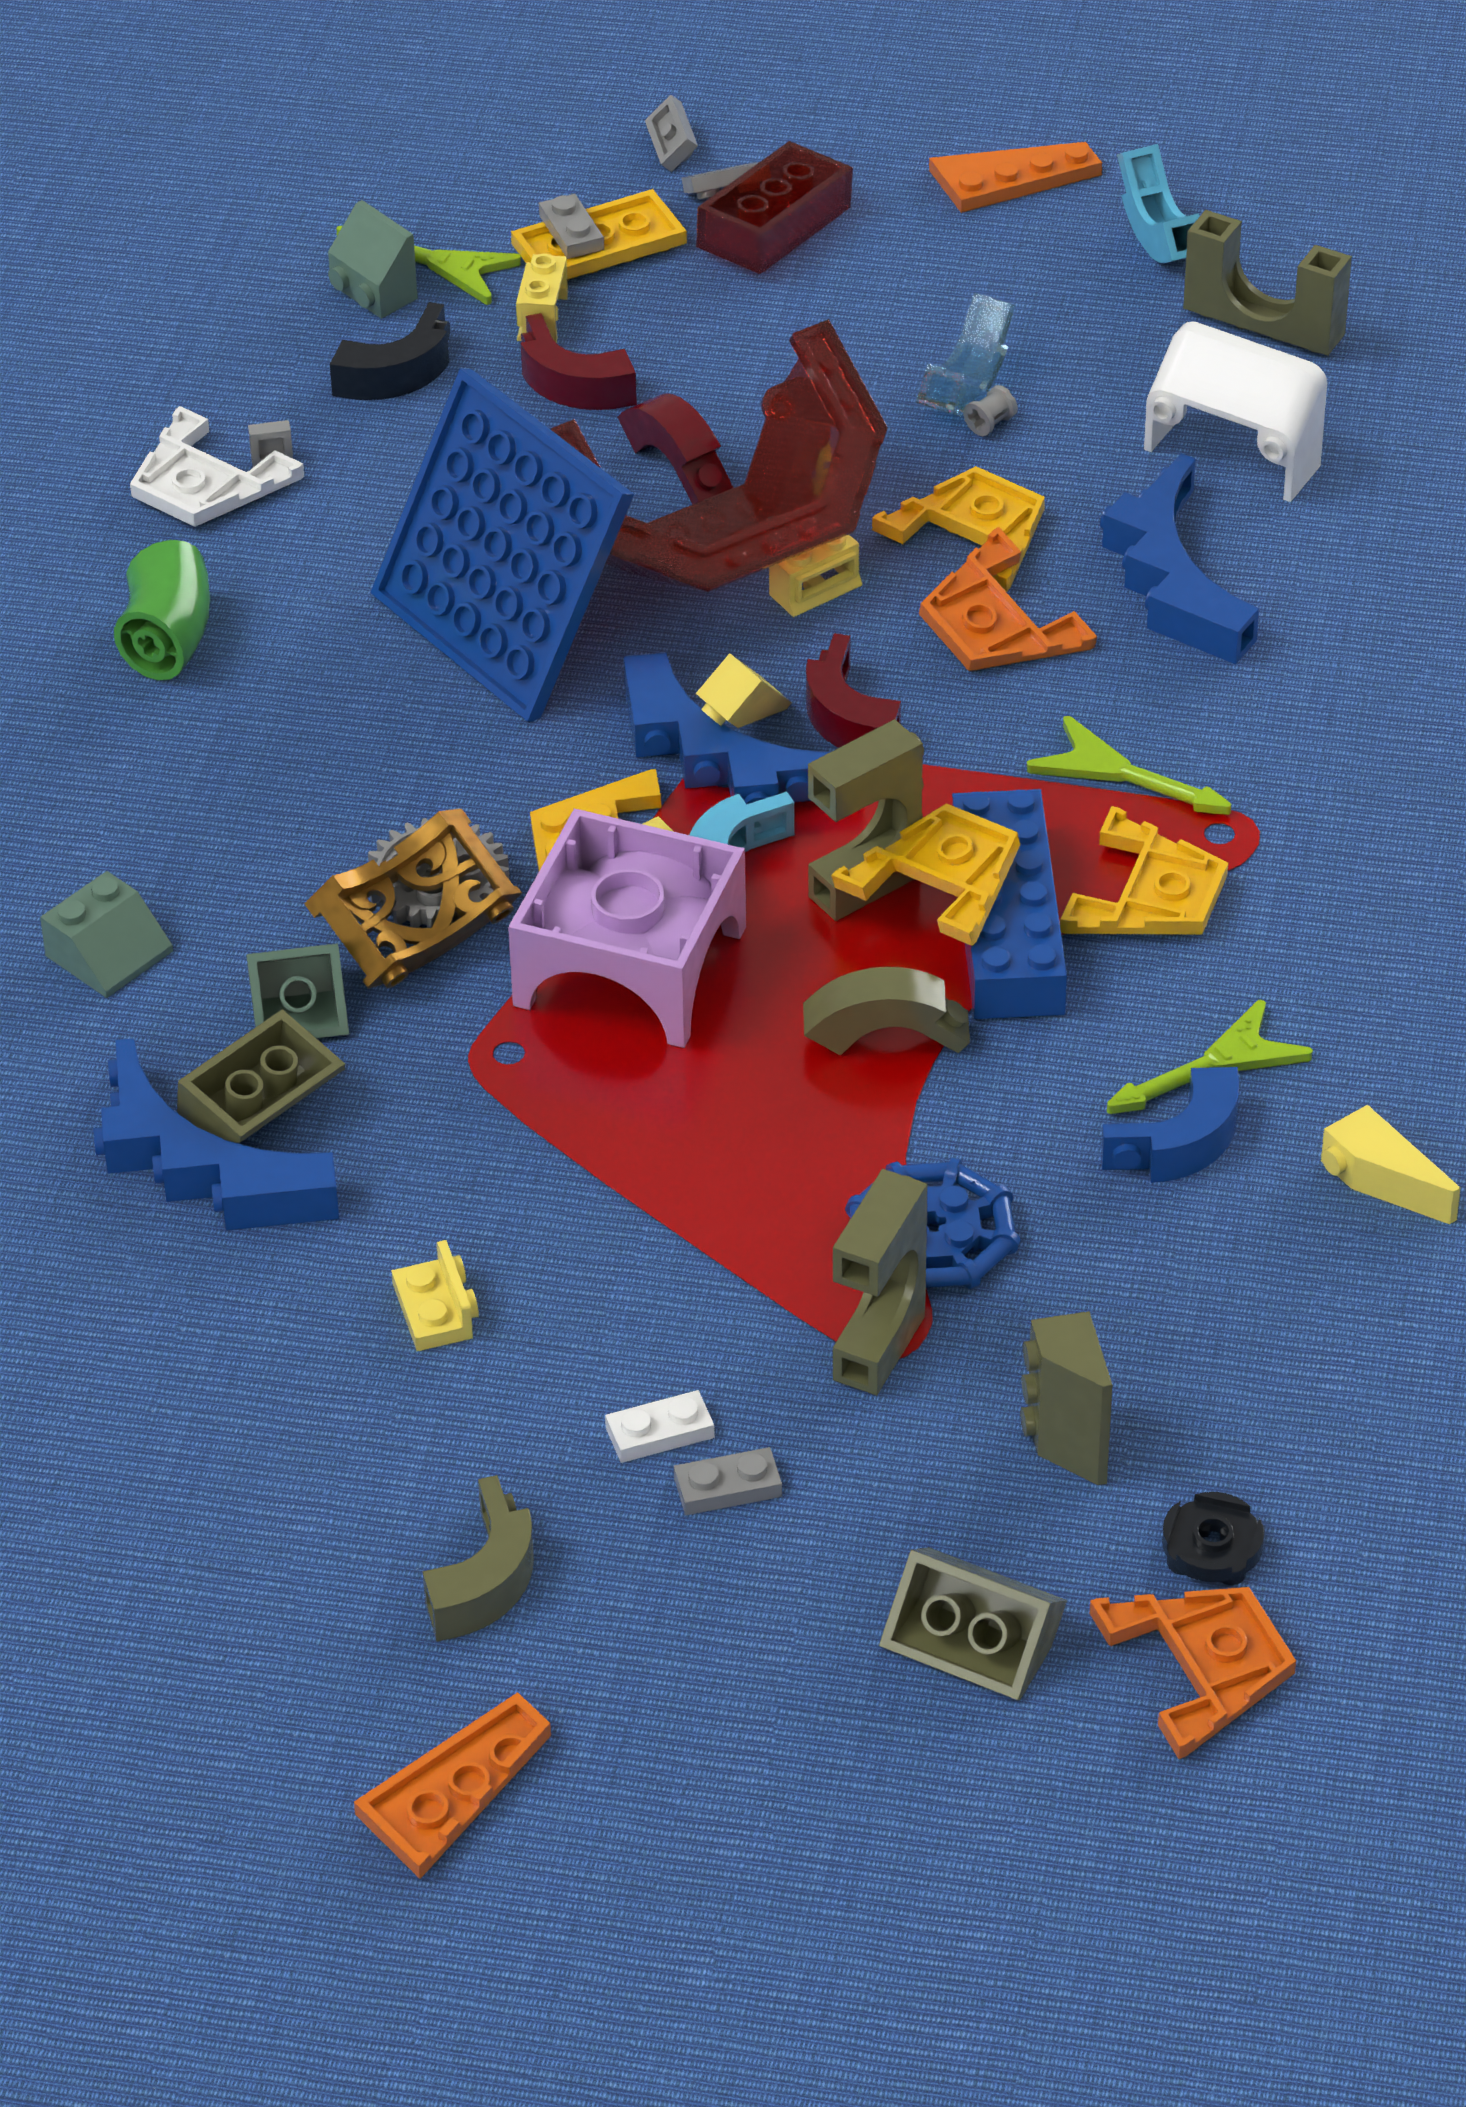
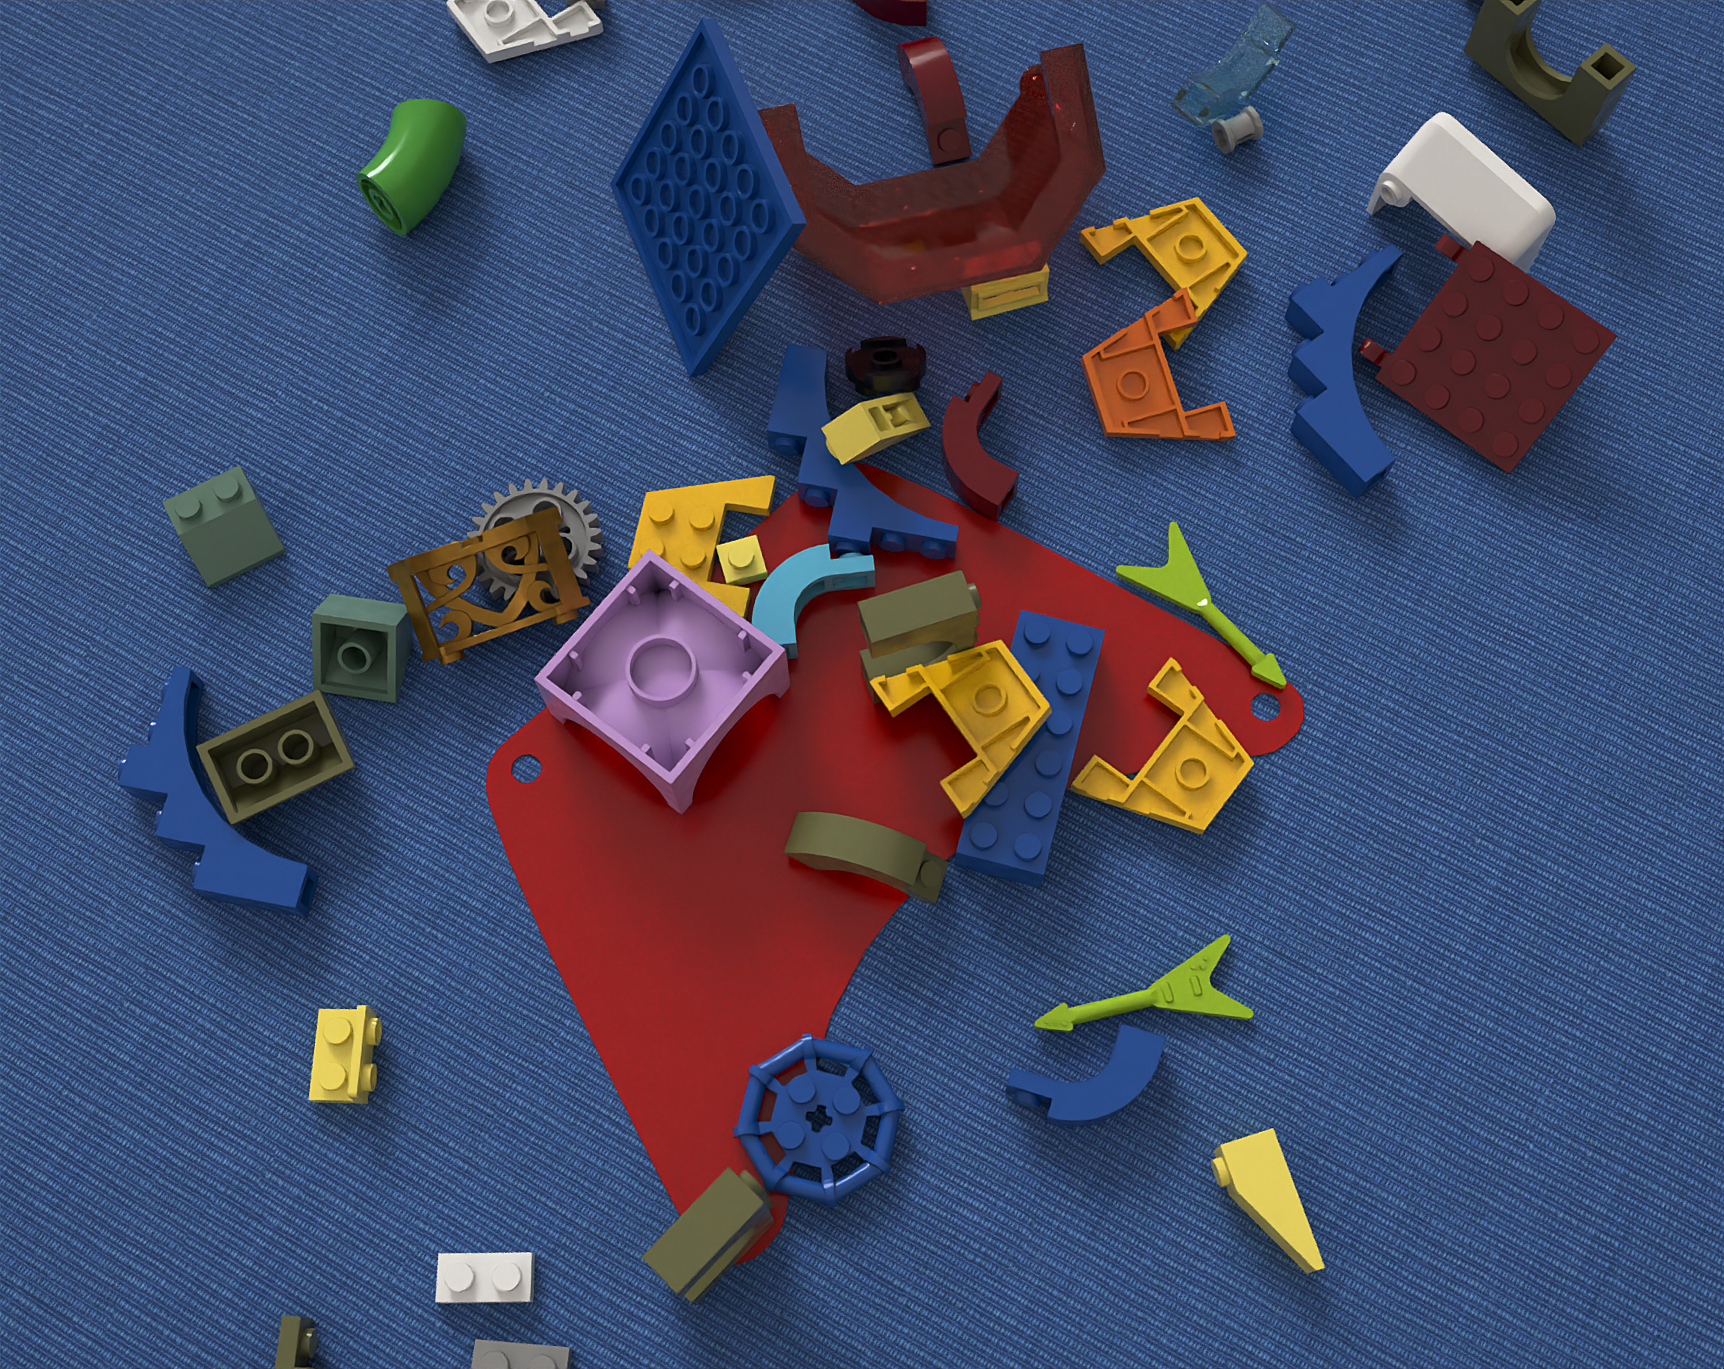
camera: 20 degrees right, 25 degrees up
(710, 655) = (885, 365): none -> black plate
(1312, 510) = (1492, 355): none -> dark red plate

